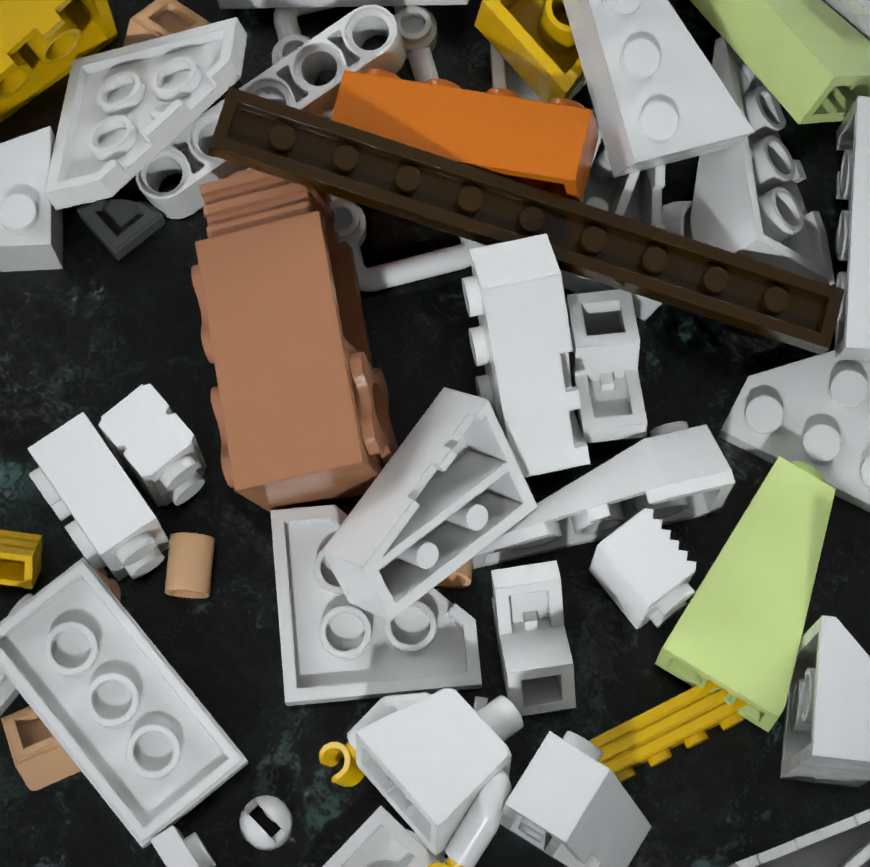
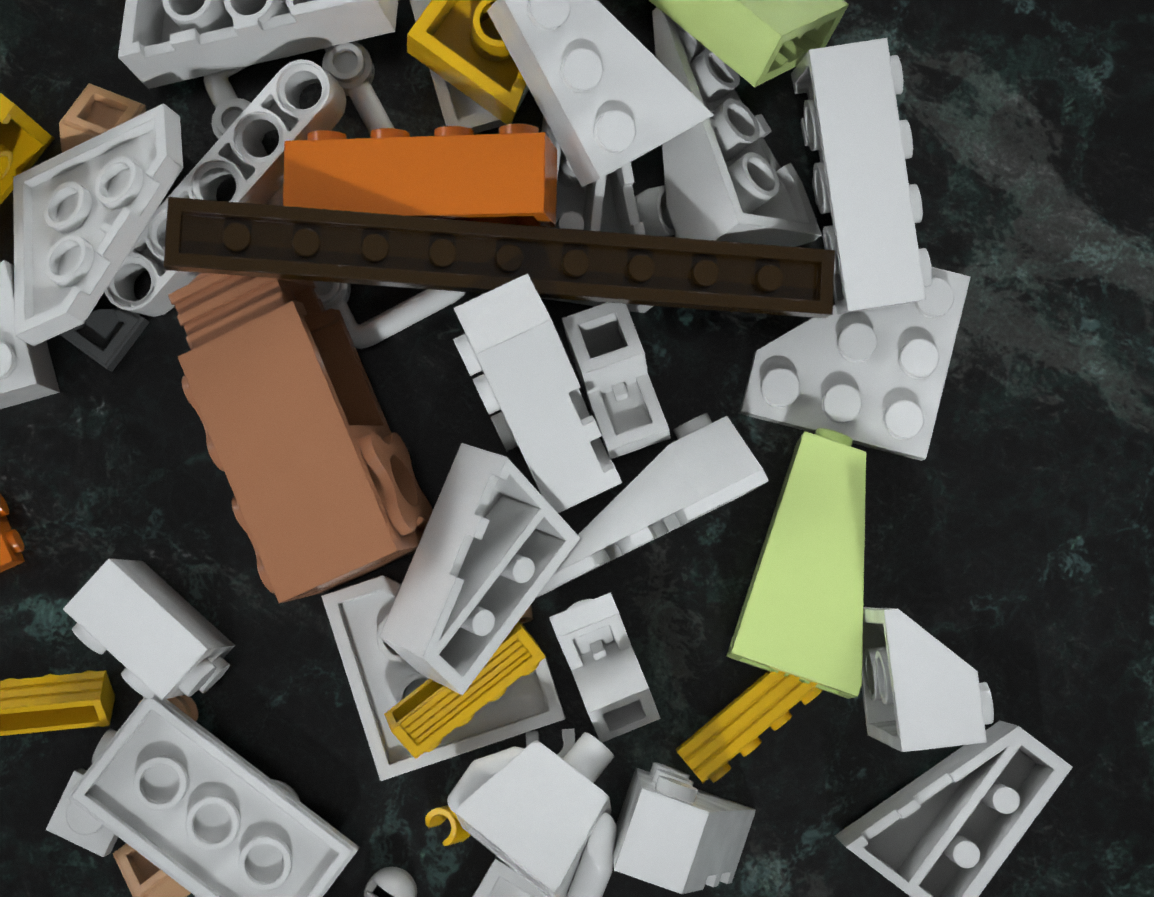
camera: 10 degrees left, 10 degrees up
(155, 446) = (190, 565): white brick -> none
(189, 565) = (256, 665): light nougat hinge -> none
(368, 637) = (435, 710): none -> yellow piece
(644, 570) = (699, 578): white brick -> none

